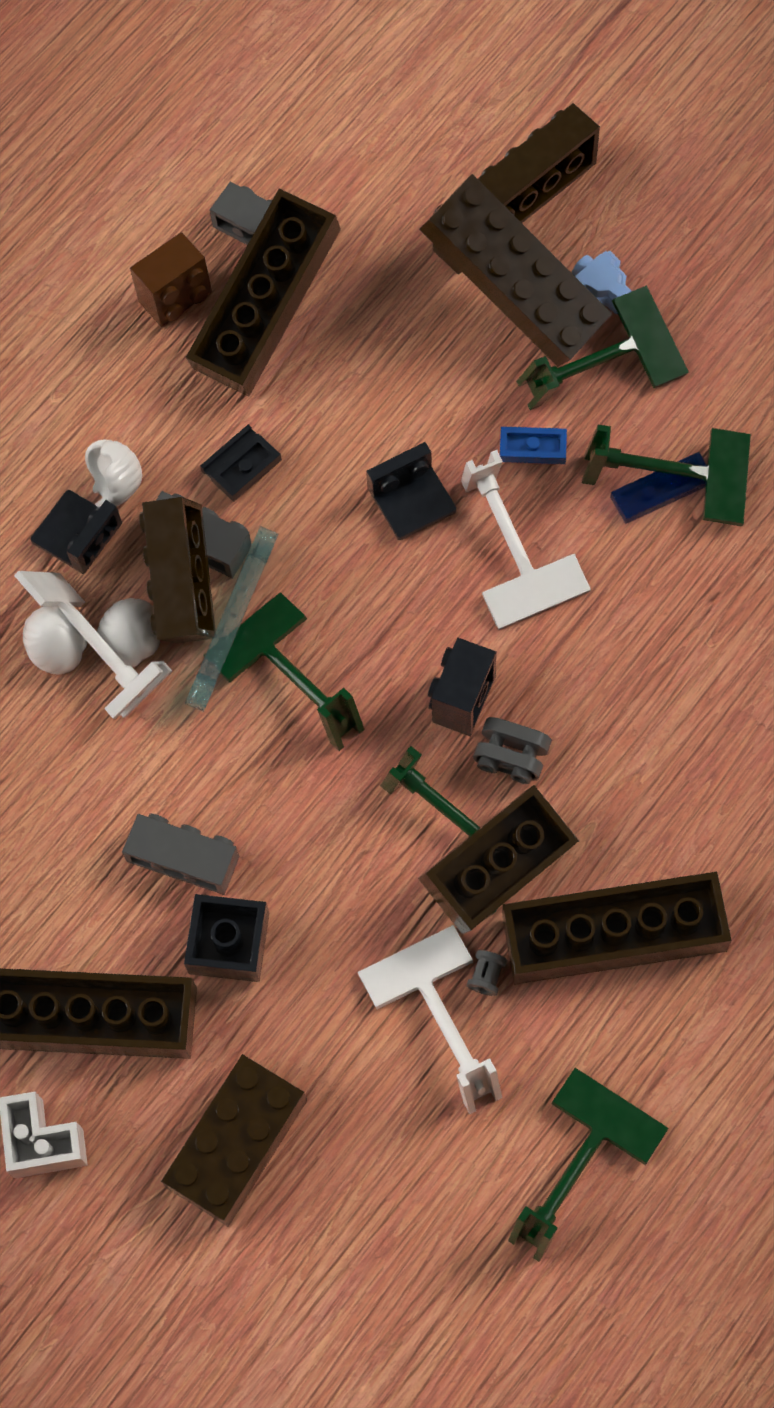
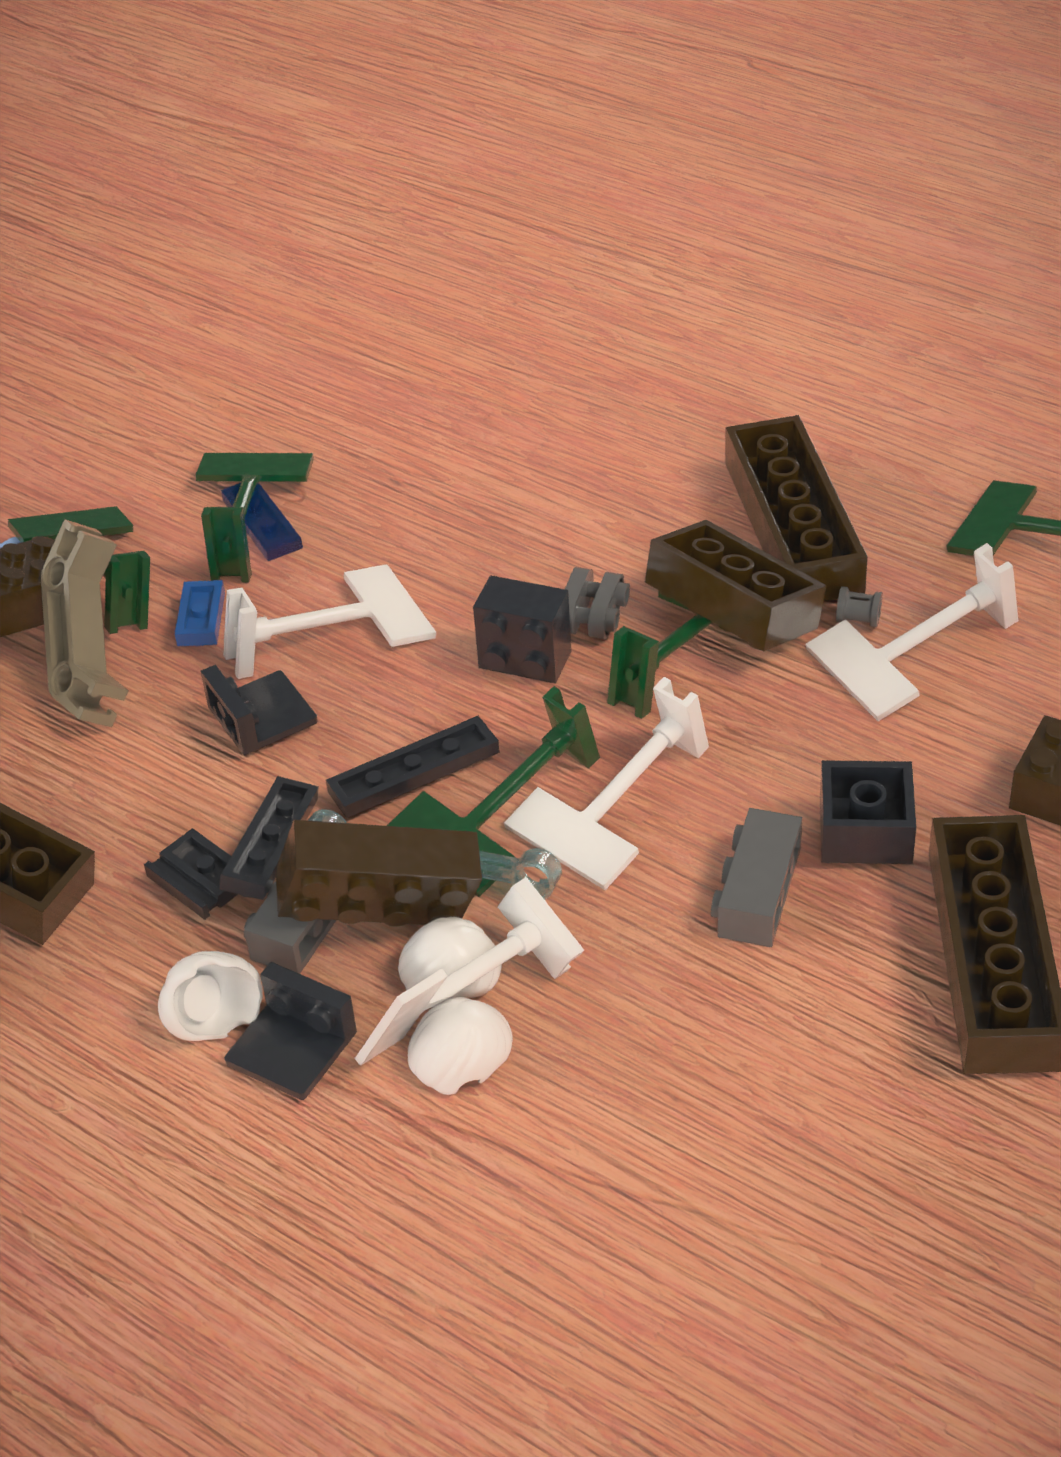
camera: 95 degrees left, 25 degrees down
(253, 724) = (576, 835): none -> white piece
(259, 506) = (255, 859): none -> black plate
(334, 609) = (412, 766): none -> black plate
(484, 349) = (75, 623): none -> dark tan piece

